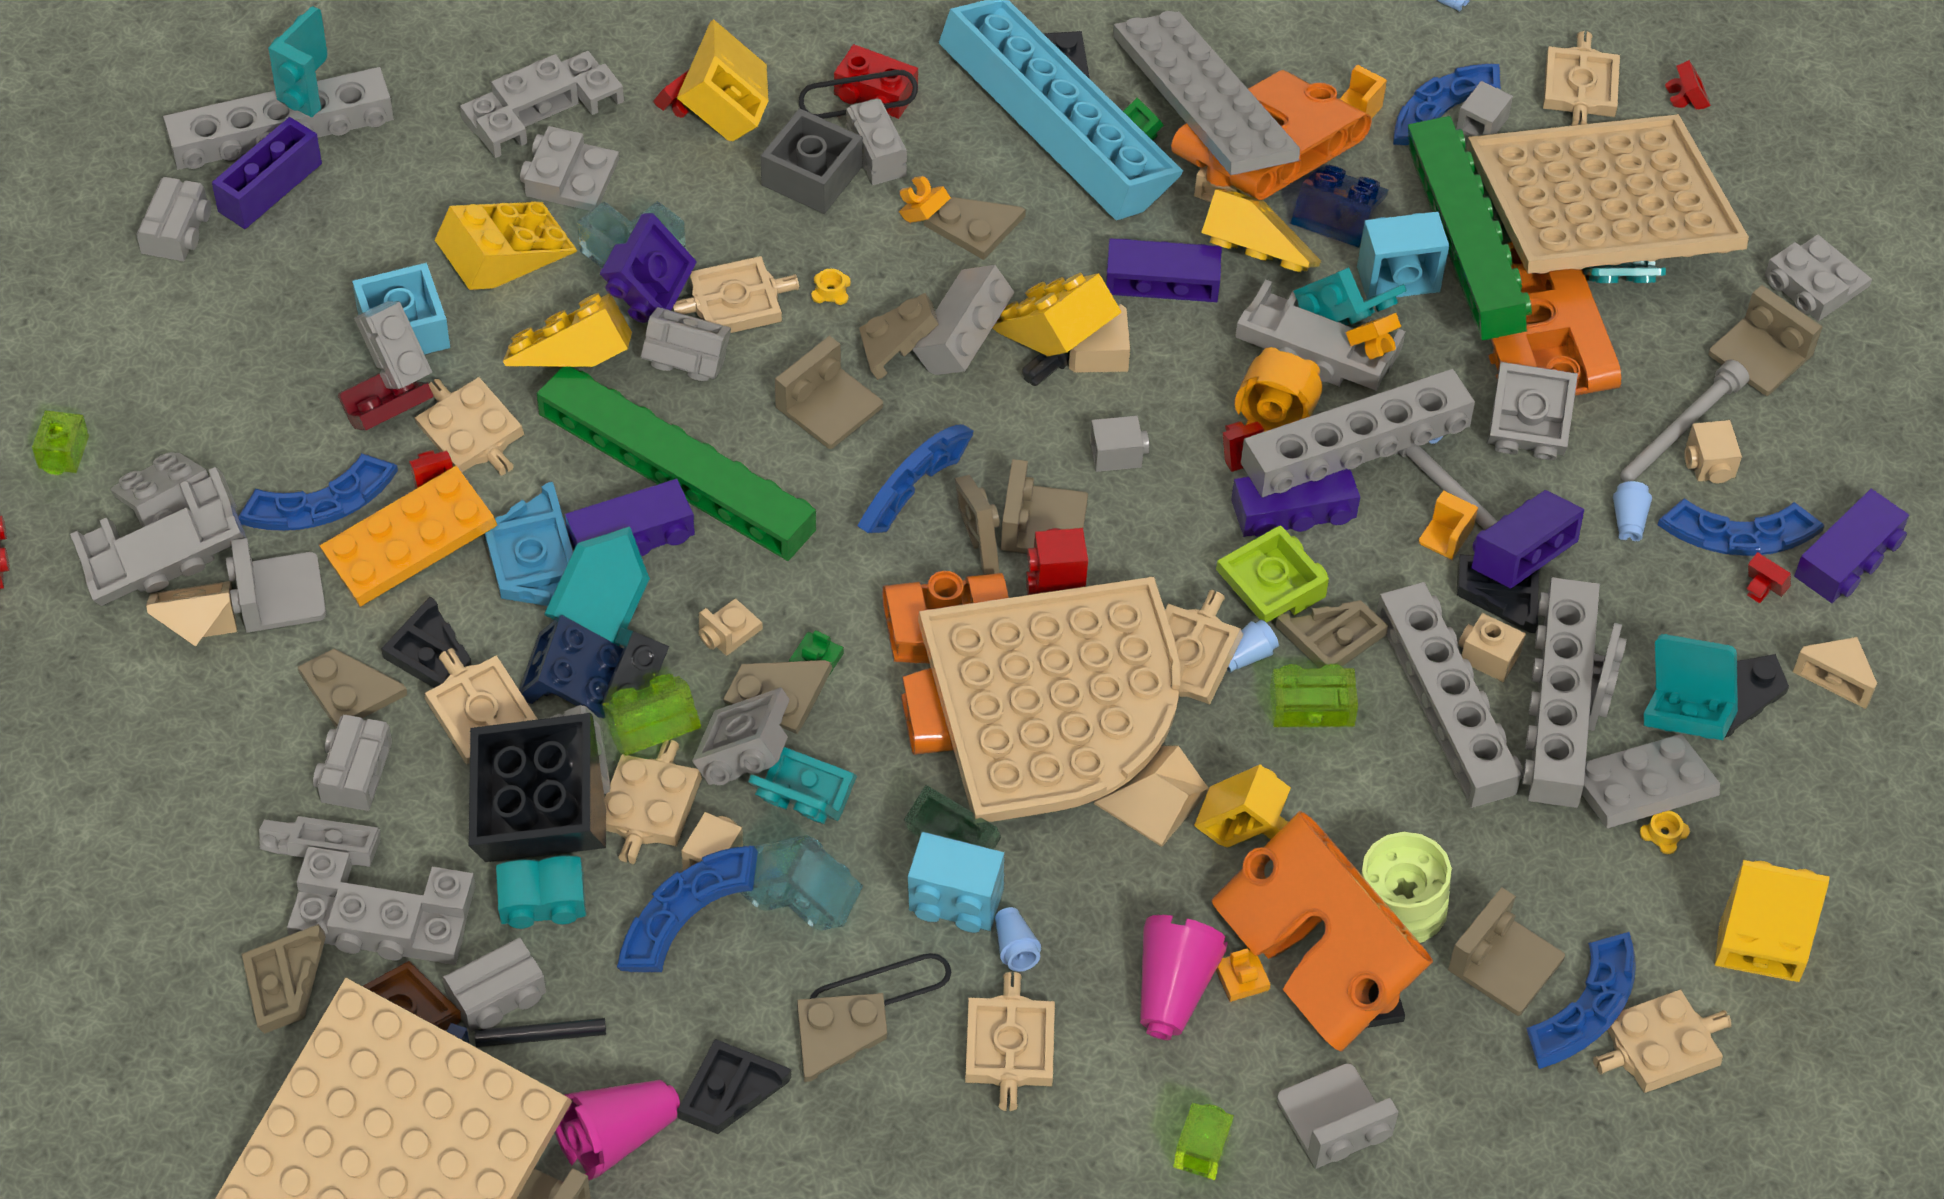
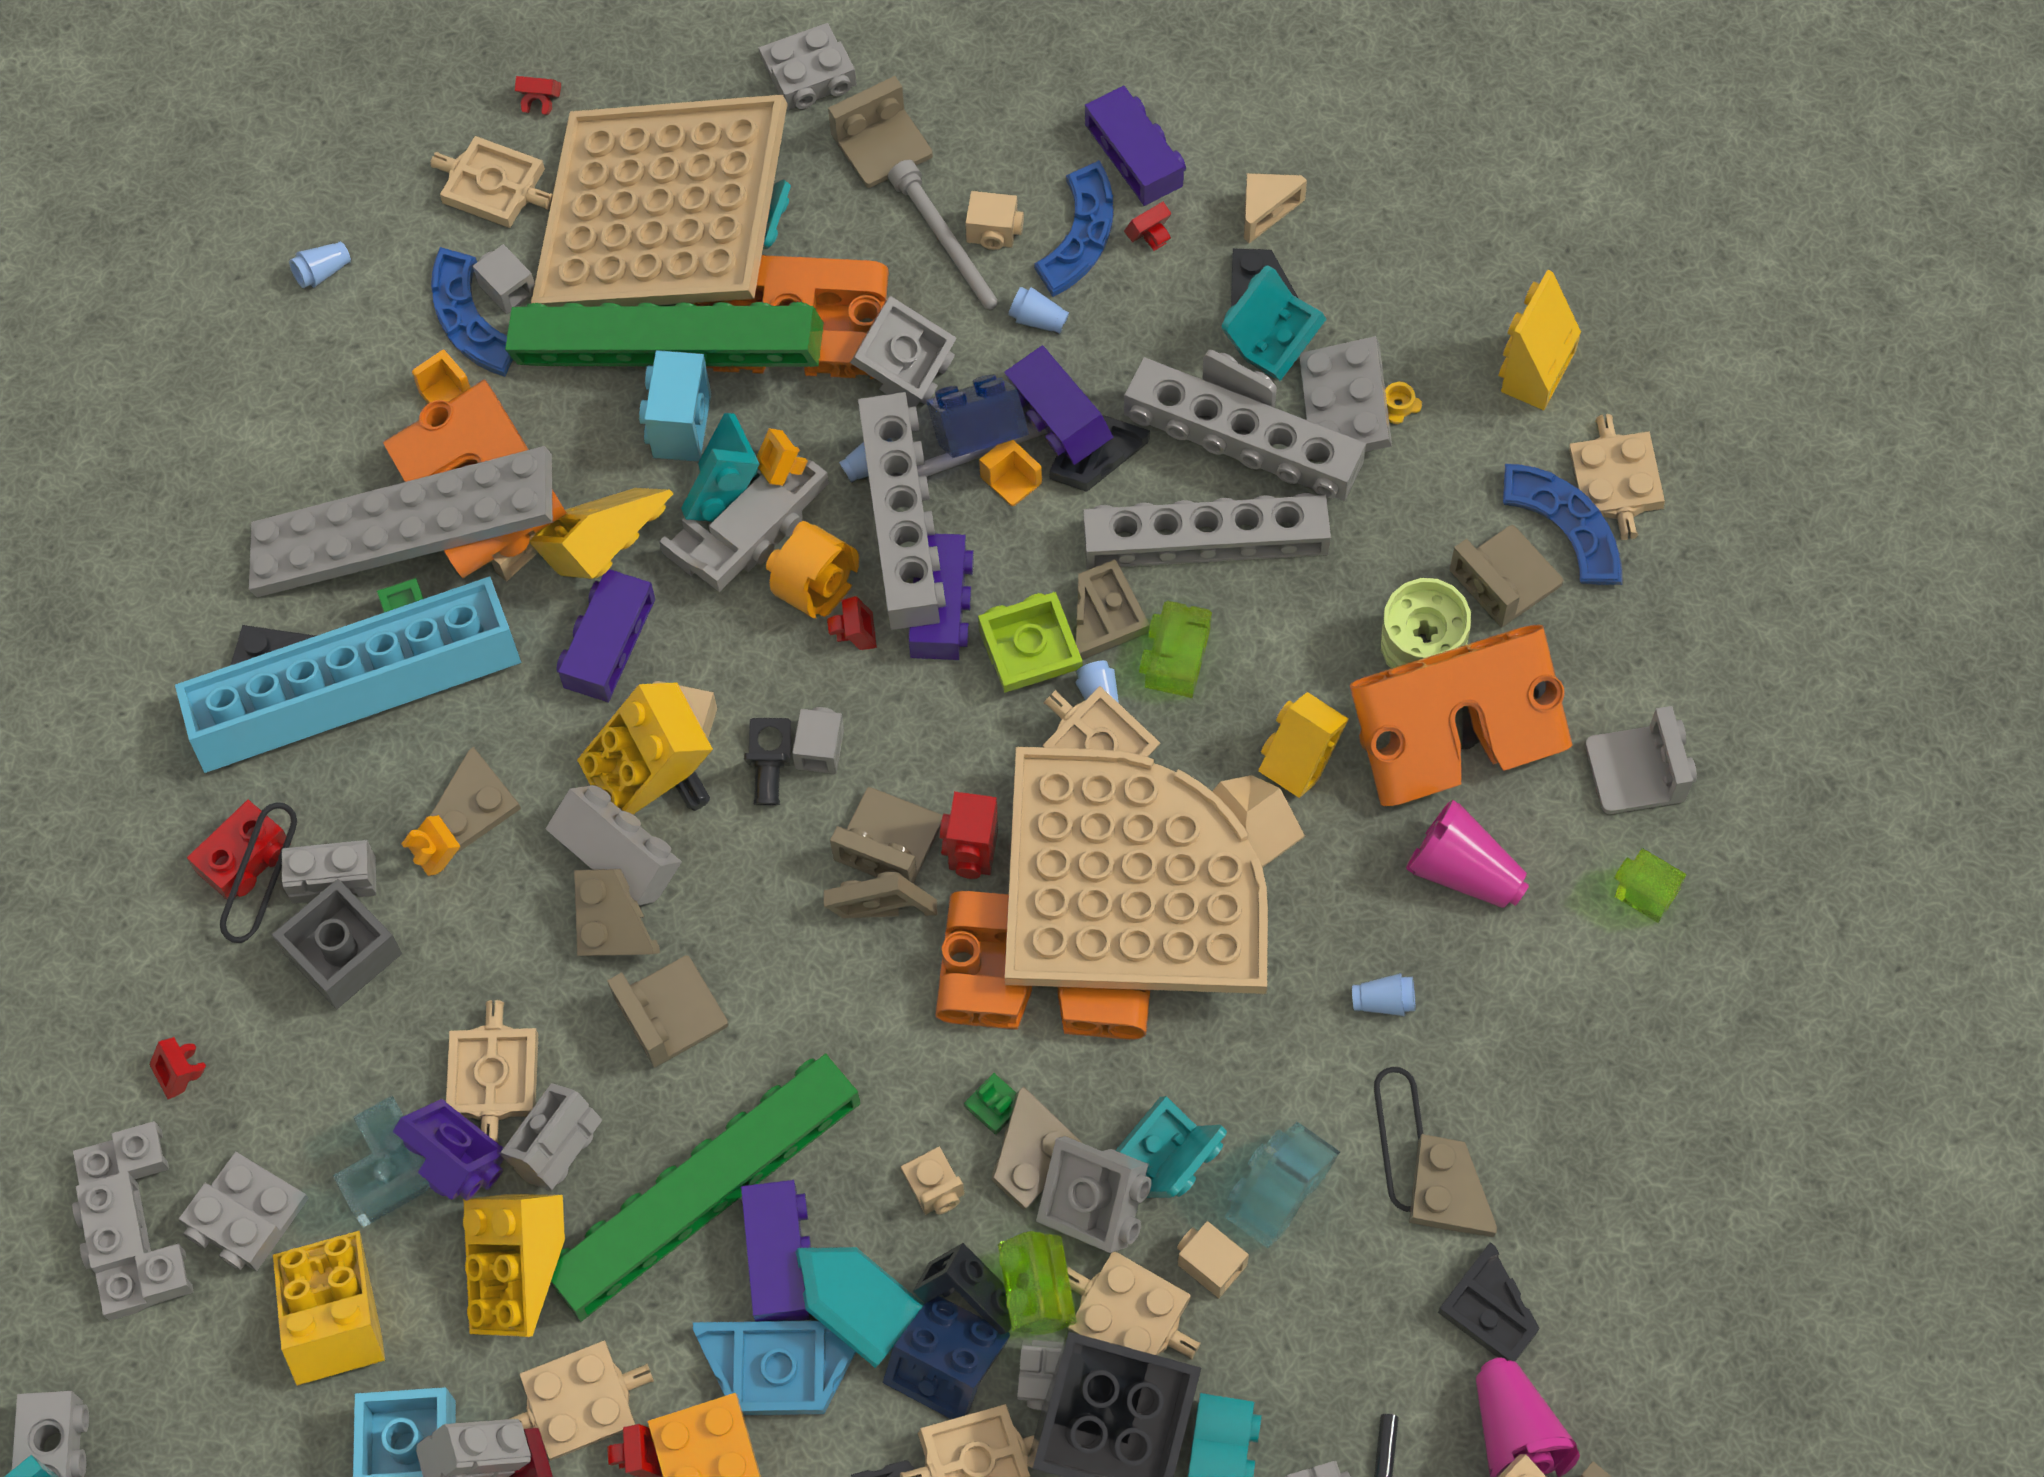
camera: 70 degrees left, 10 degrees up
(679, 899) = (1273, 1304): blue tile -> none
(726, 84) = (192, 1006): yellow slope -> none
(831, 278) = (506, 960): yellow plate -> none
(929, 458) = (809, 944): blue tile -> none
(945, 818) = (1254, 1019): clear green brick -> none
(955, 882) = (1331, 1020): medium azure brick -> none
(1010, 1041) = (1498, 1031): tan plate -> none
(1080, 412) = (768, 763): none -> black bracket
(1242, 975) = (1474, 799): light orange tile -> none
(1337, 204) = (582, 445): clear blue bracket -> none
(1484, 473) = (977, 415): none -> clear blue brick
(1491, 646) = (1163, 476): tan brick -> none

